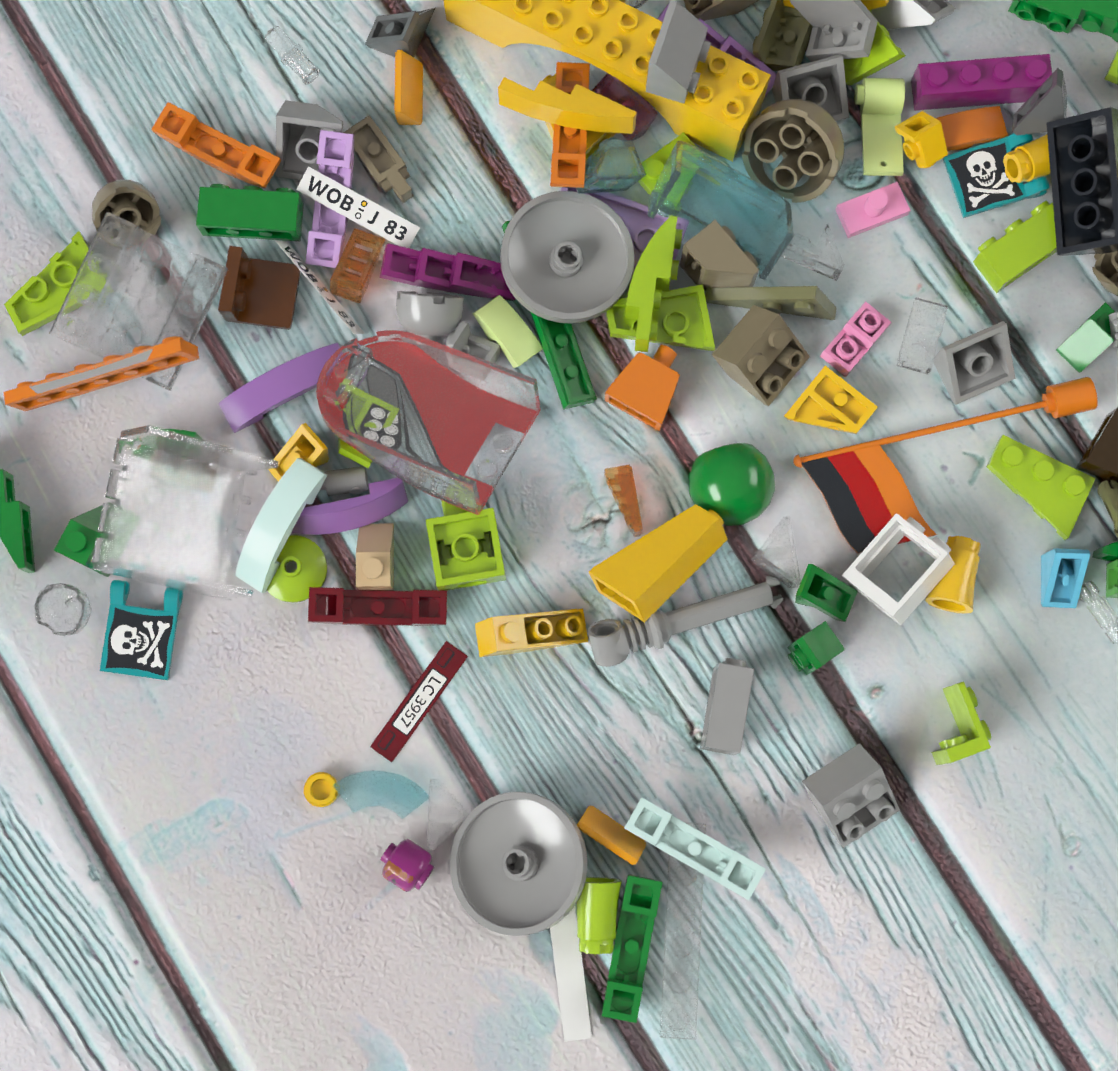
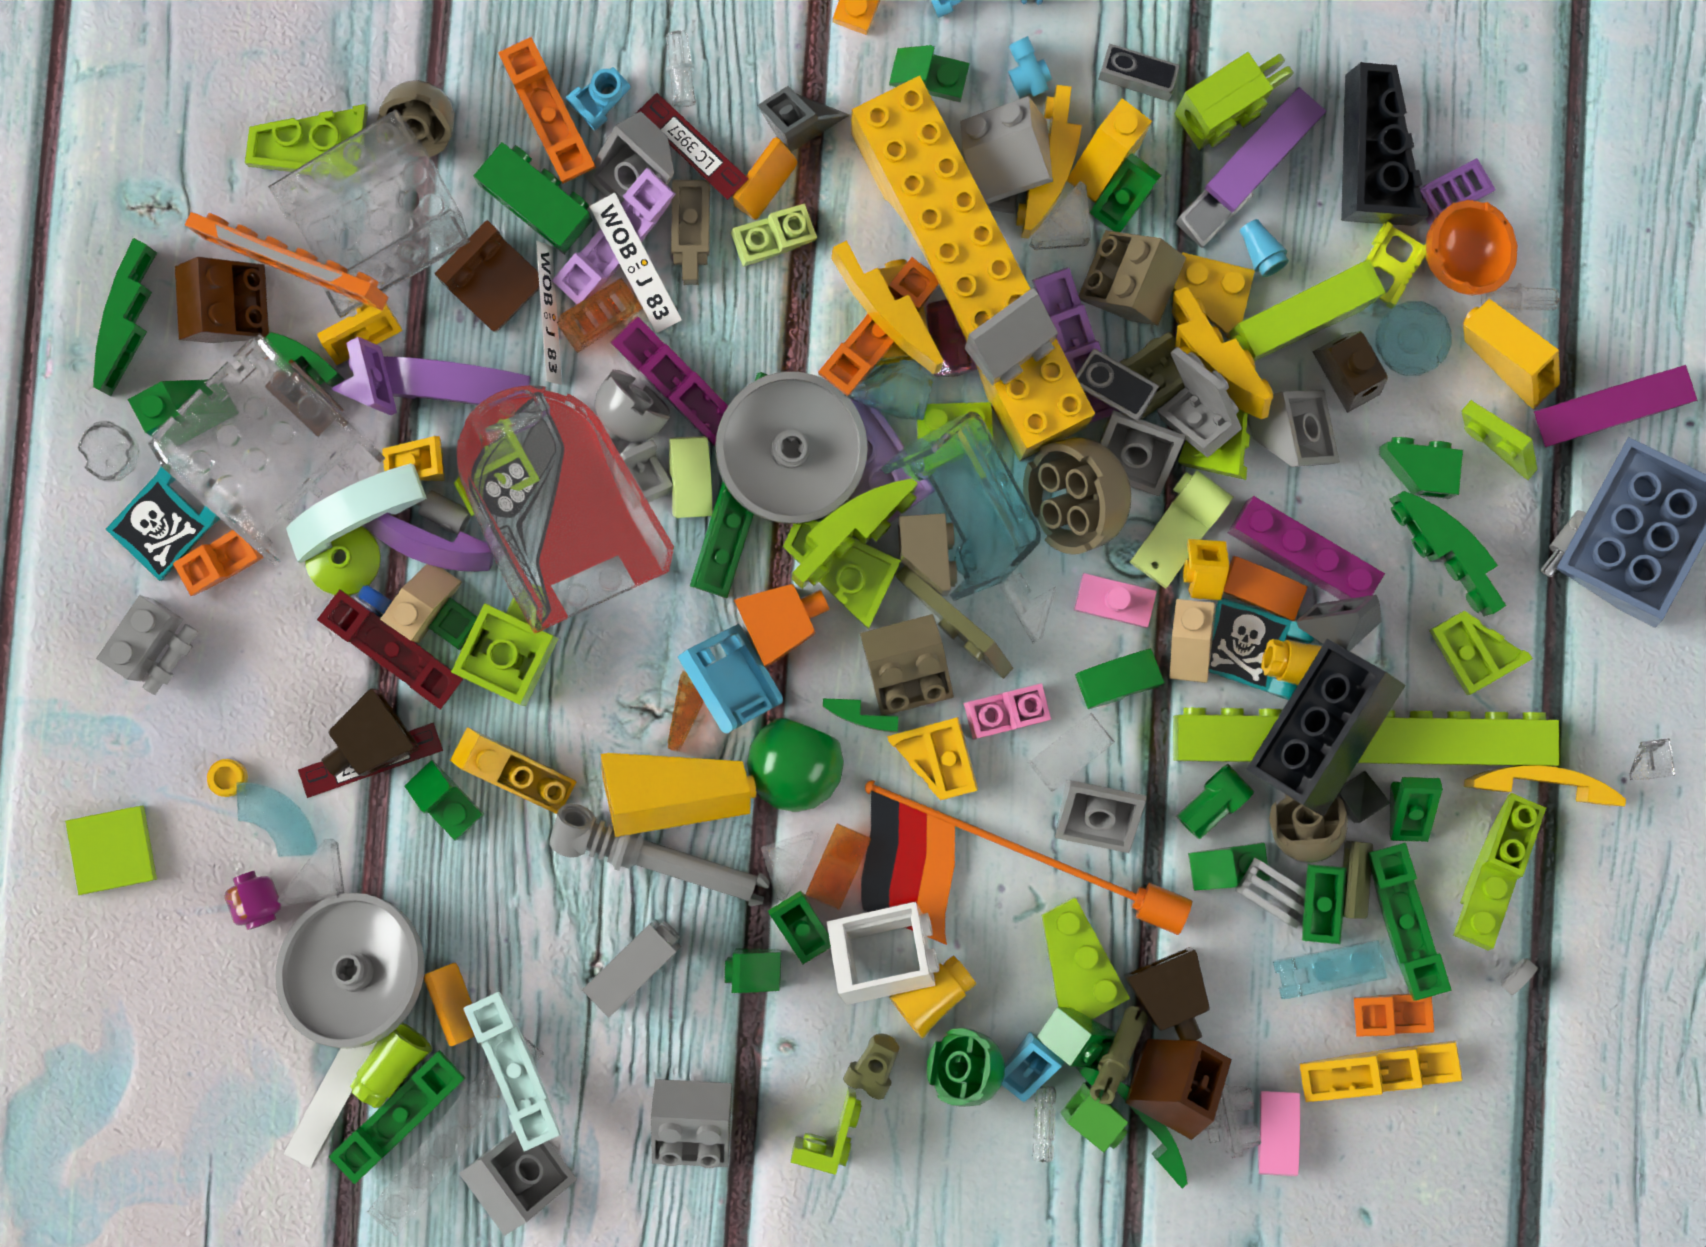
camera: 30 degrees right, 5 degrees up
(69, 443) = (221, 300): none -> reddish brown slope
(185, 730) = (141, 640): none -> light grey brick
(190, 395) = (367, 324): none -> yellow hinge
(201, 634) = (215, 562): none -> orange slope
(223, 424) = (370, 379): none -> medium lavender slope
(246, 118) = (592, 103): none -> medium azure plate
(271, 906) = (111, 850): none -> lime tile
(340, 579) = (373, 599): none -> blue tile
(344, 99) = (694, 147): none -> sticker
(408, 682) = (369, 737): none -> dark brown torso
(411, 557) = (453, 623): none -> green tile
(443, 124) = (774, 235): none -> yellowish green slope
(495, 690) = (443, 800): none -> green slope
(648, 452) = (734, 686): none -> medium azure container
(747, 416) = (850, 711): none -> green slope
(754, 931) = (515, 1182): none -> light grey slope
(768, 52) = (1116, 384): none -> black slope
(818, 532) = (838, 866): none -> clear orange slope
(918, 259) = (1119, 678): none -> green slope
(949, 195) = (1192, 640): none -> tan slope
(951, 657) = (874, 1067): none -> olive plate
(1020, 608) = (965, 1068): none -> green cylinder
(1051, 290) = (1222, 795): none -> green piece
(1083, 530) = (1076, 1037): none -> slope

